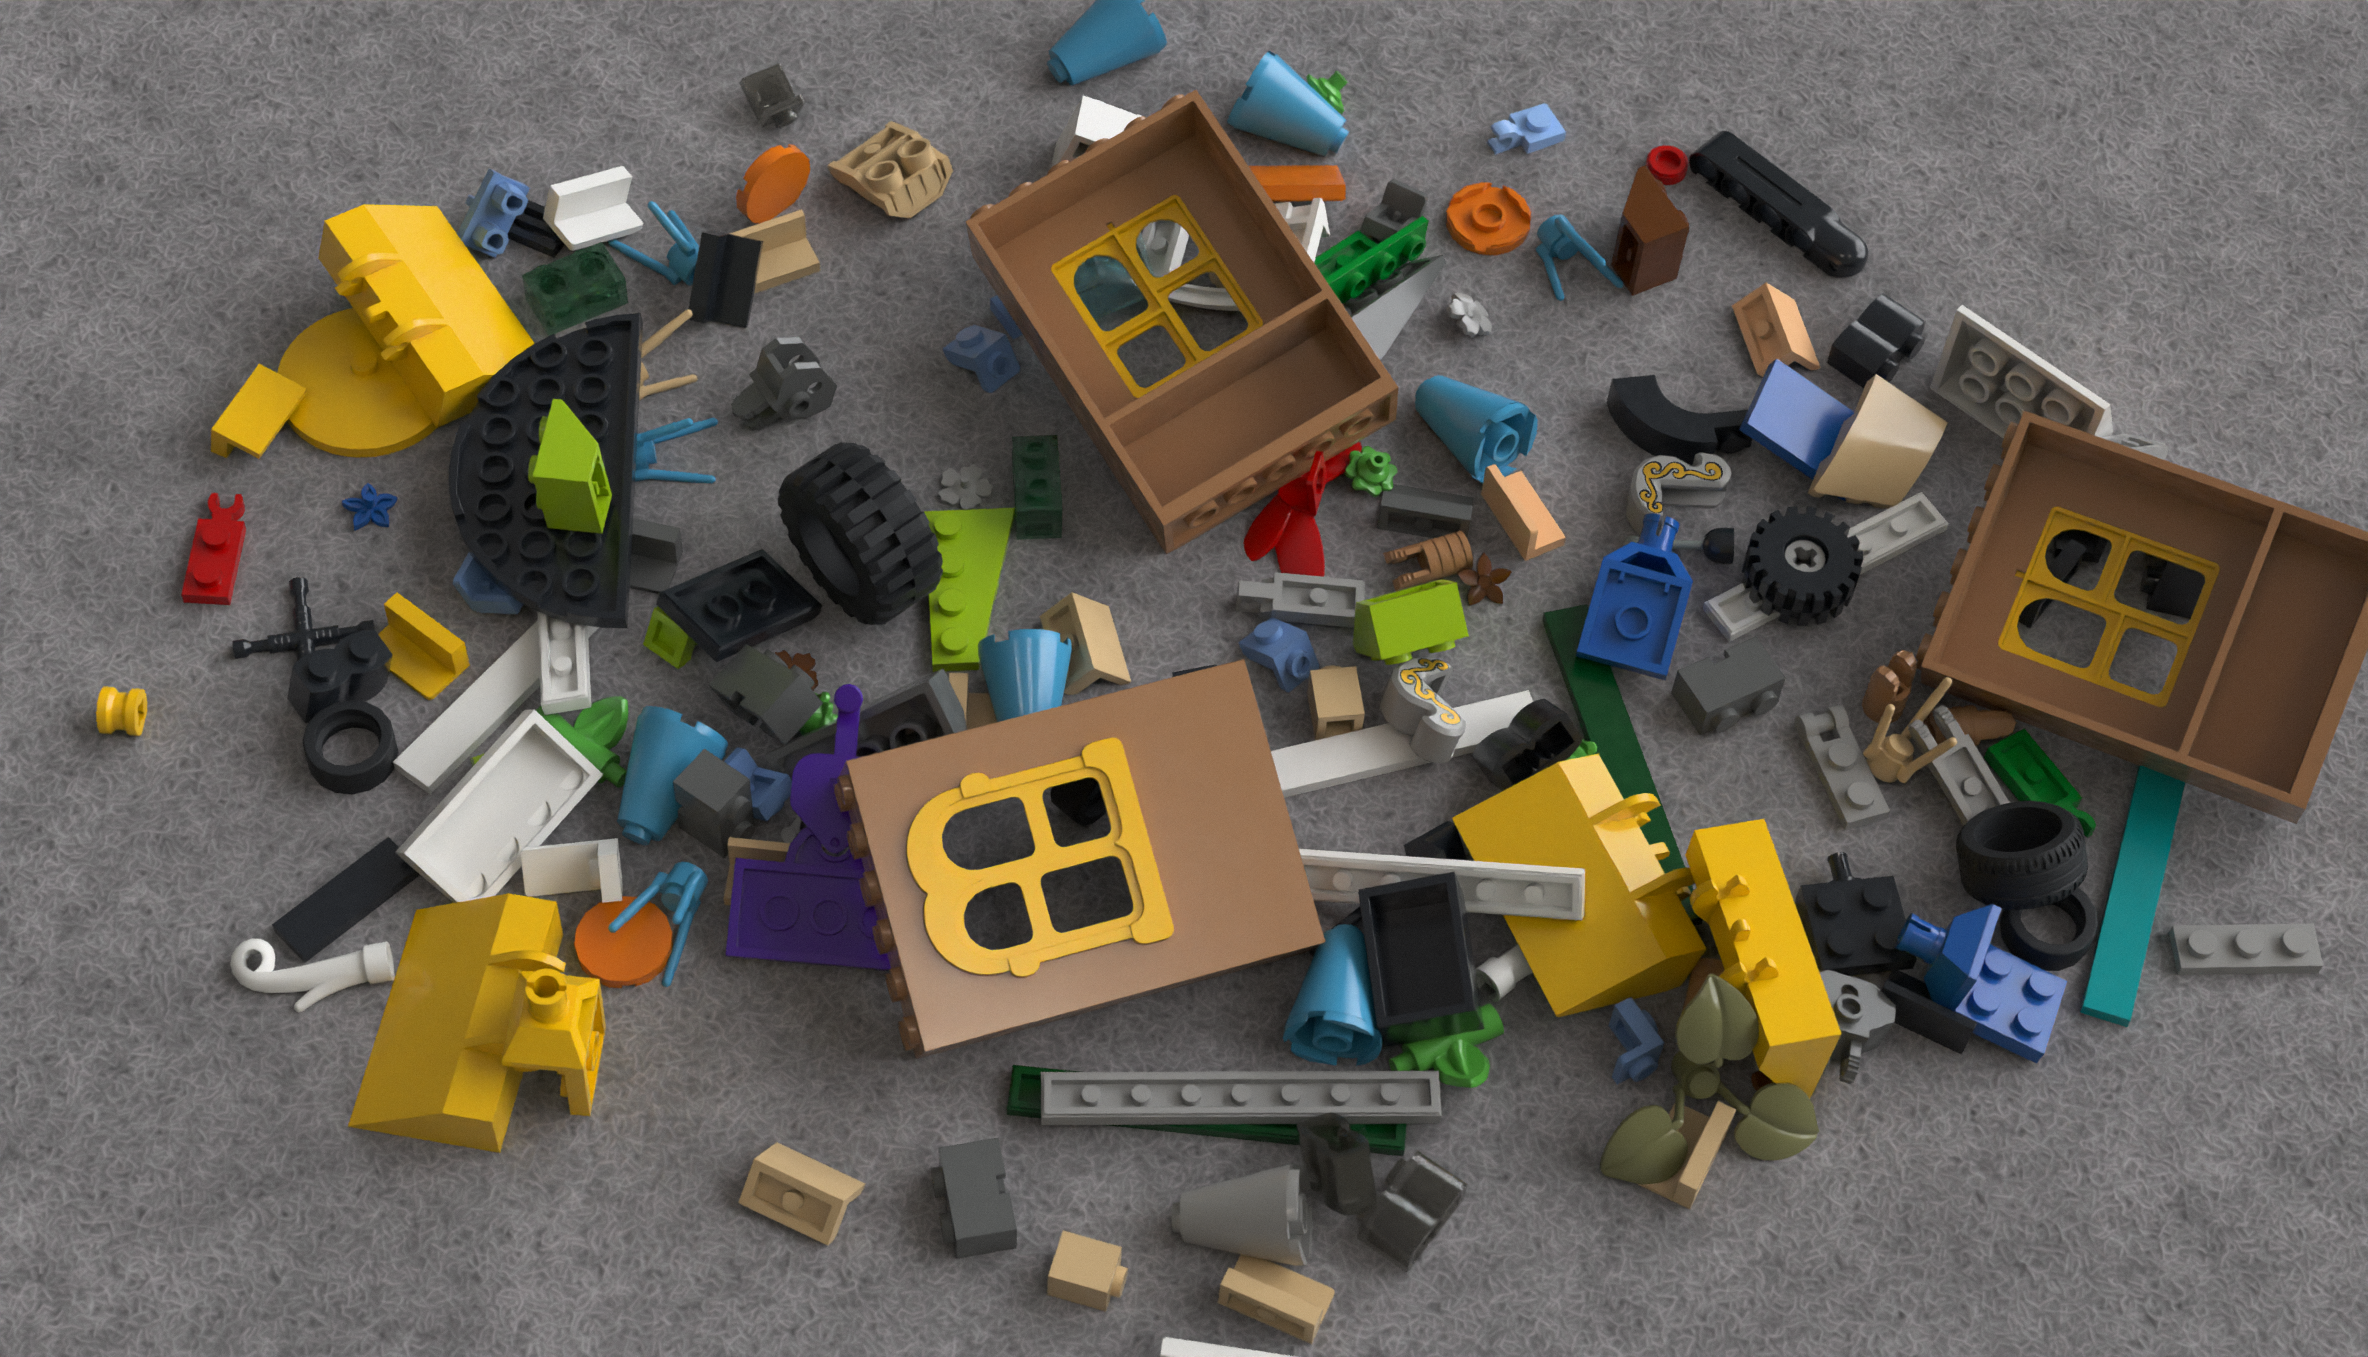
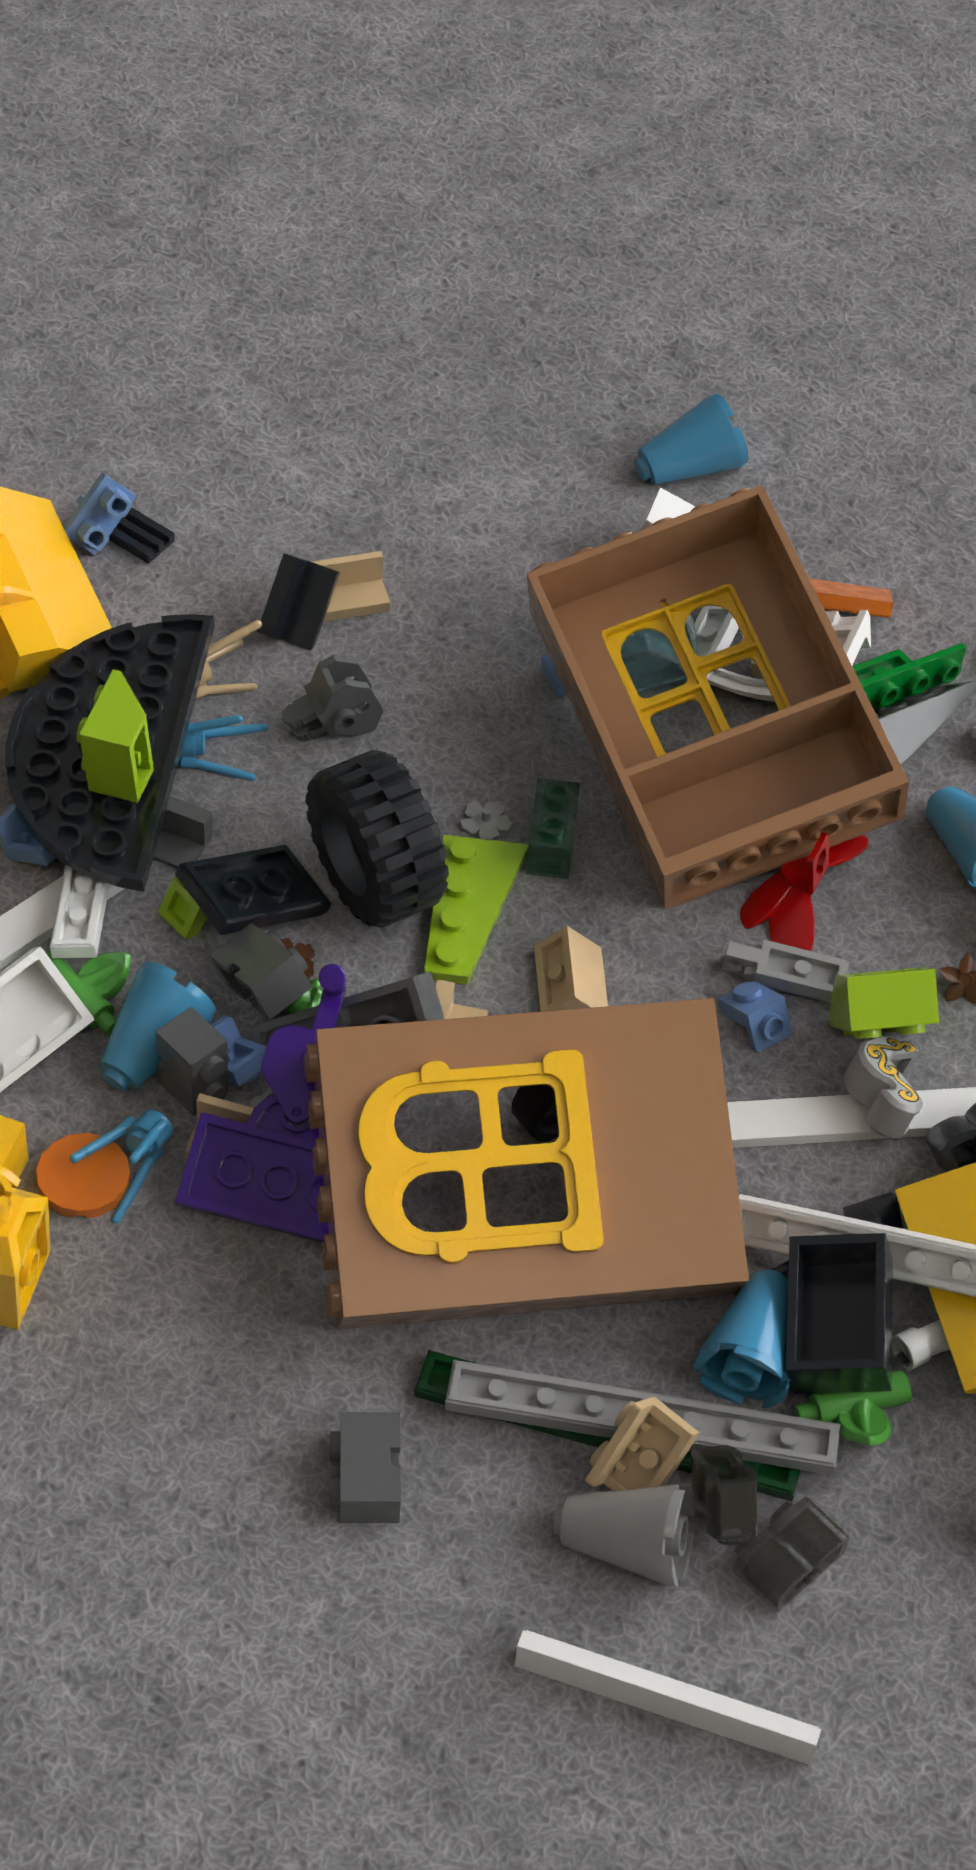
camera: 10 degrees right, 5 degrees down
(573, 869) = (50, 1100): white bracket -> none
(575, 288) = (161, 589): clear green brick -> none
(591, 209) = (190, 524): white panel -> none
(681, 255) = (261, 577): dark azure plant -> none
(772, 97) = (375, 454): clear smoke bracket -> none
(773, 183) = (360, 524): orange tile -> none
(799, 1192) = (200, 1433): tan panel -> none
(895, 171) = (476, 533): tan slope -> none
(986, 354) = (528, 704): medium blue bracket -> none
(1025, 671) = (509, 982): dark azure cone -> none
(1086, 1271) = (461, 1555): tan brick -> none
(1250, 1132) = (643, 1449): none -> tan bracket
(1276, 1296) = (642, 1612): tan panel -> none
(1287, 109) = (850, 532): dark azure cone -> none
(1329, 89) = (890, 524): bright green plant -> none
(1335, 701) = (801, 1065): tan brick -> none
(1371, 471) = (873, 863): bright green plant -> none
(1398, 208) = (940, 633): dark grey bracket -> none
(1424, 512) = (918, 910): dark grey panel -> none
(1436, 556) = (922, 949): medium nougat hinge -> none

